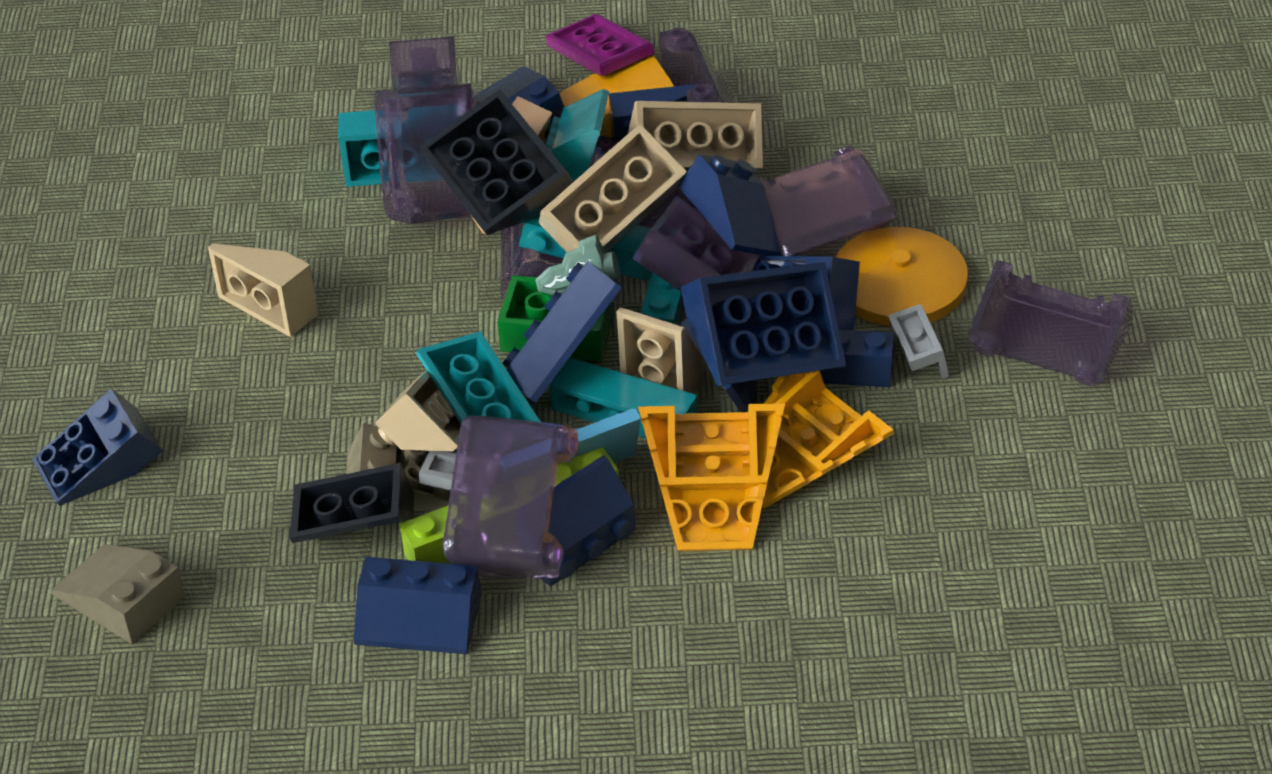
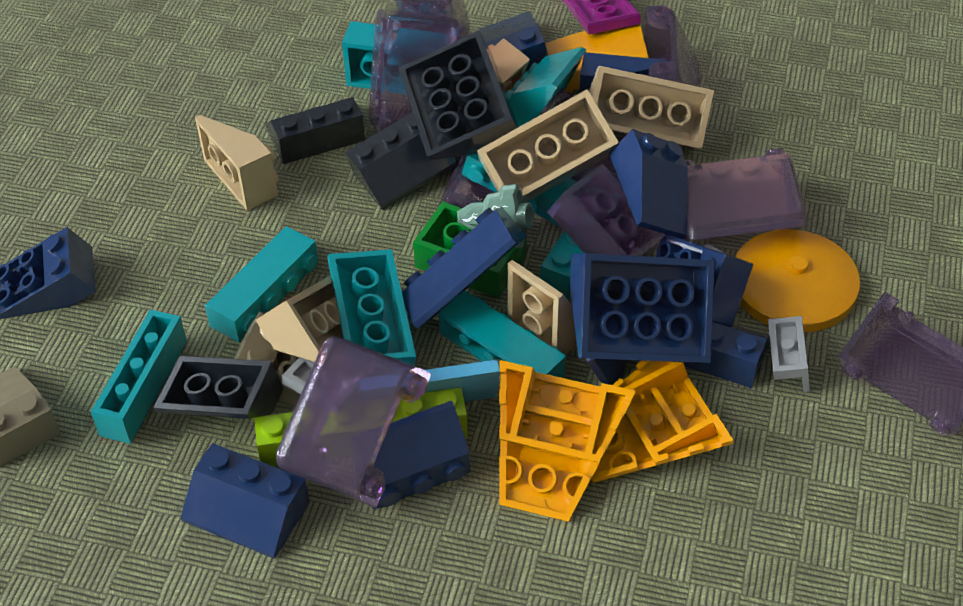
camera: 15 degrees right, 5 degrees up
(254, 517) = (139, 376): none -> teal brick
(339, 235) = (317, 130): none -> black slope
(344, 402) = (262, 283): none -> teal brick
(441, 248) = (395, 162): none -> black slope

